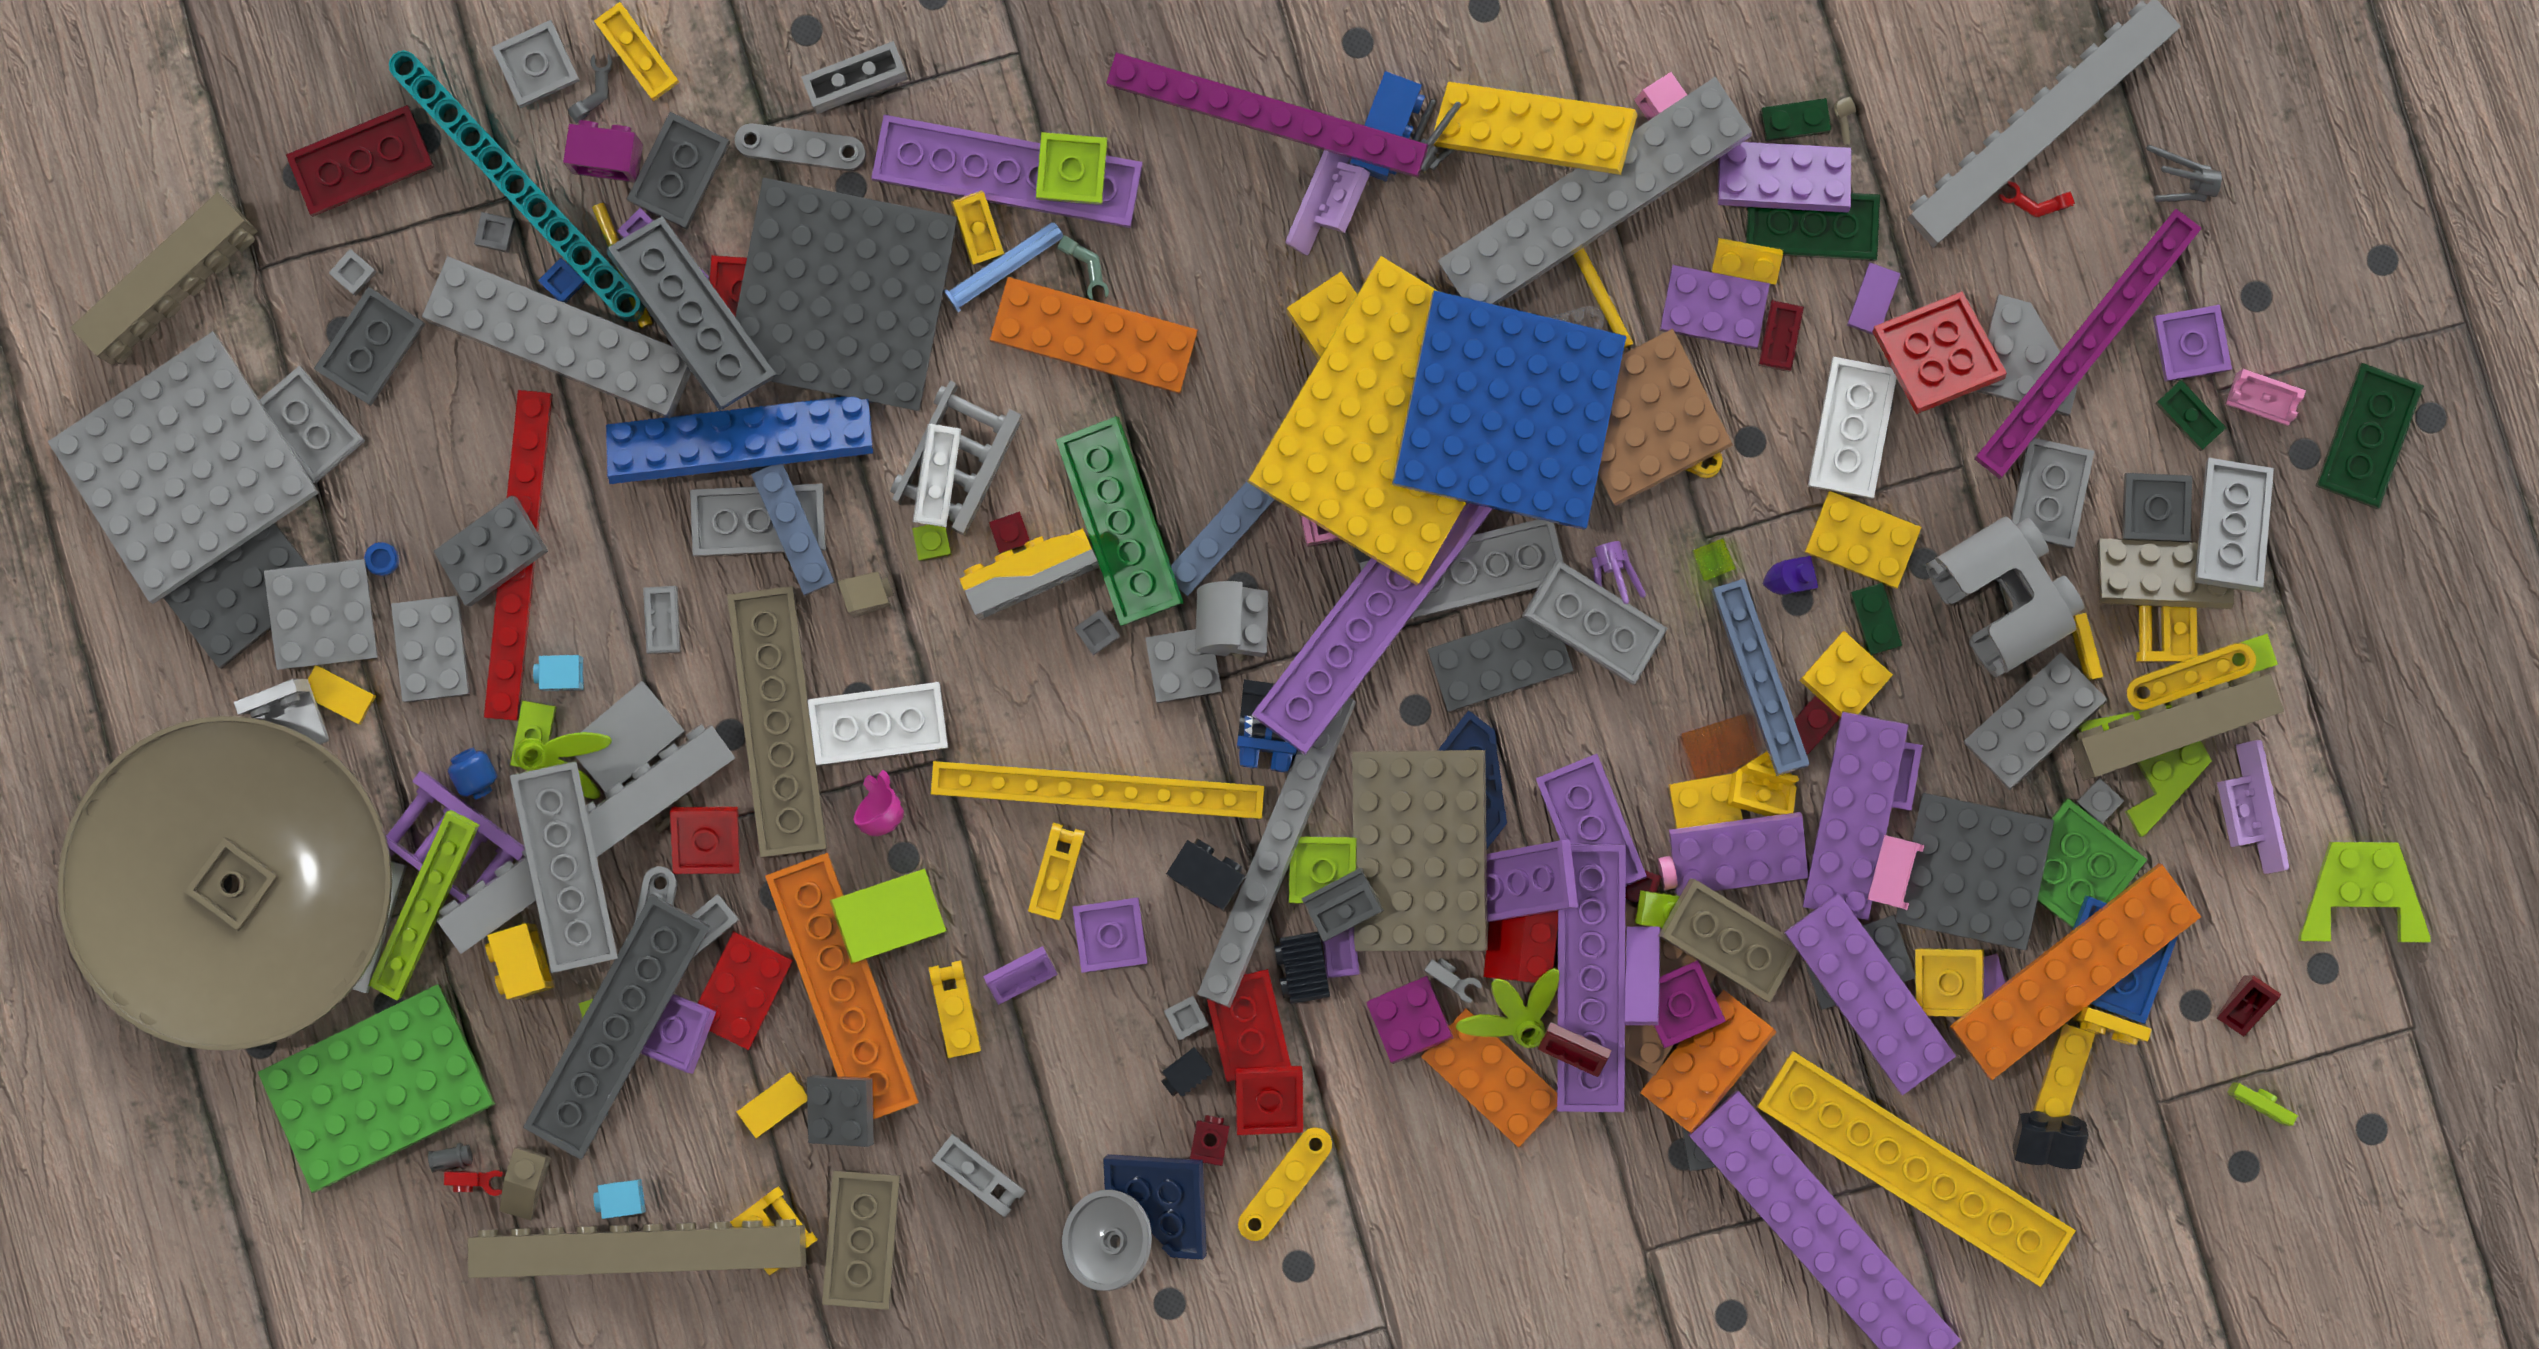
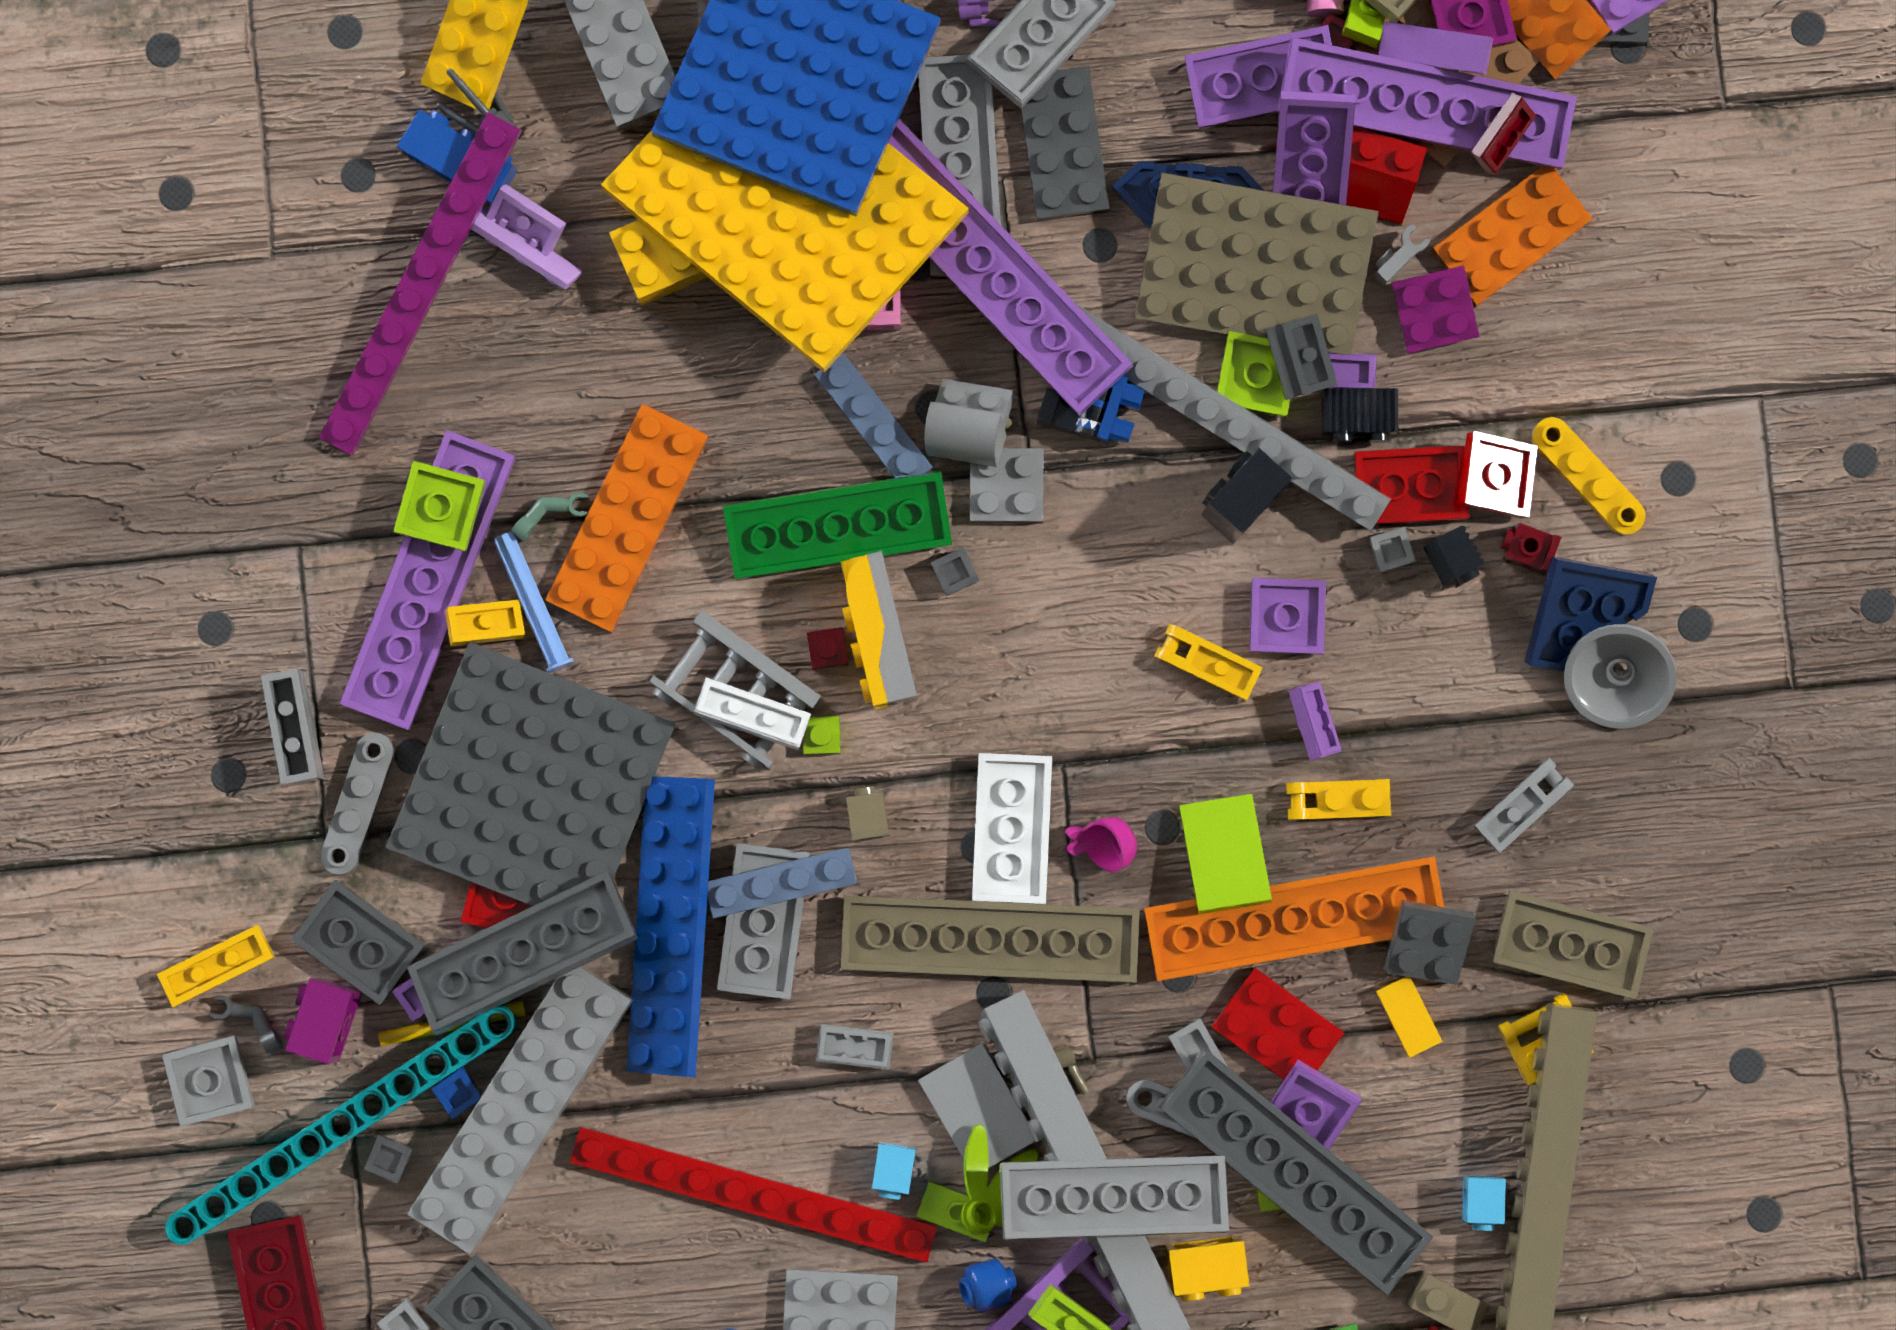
camera: 80 degrees left, 0 degrees up
(490, 551) = (744, 1222): dark grey plate -> none
(705, 840) = (1107, 1039): red plate -> none
(1097, 790) = (1127, 602): yellow plate -> none
(1518, 1016) = (1459, 188): lime plant -> none

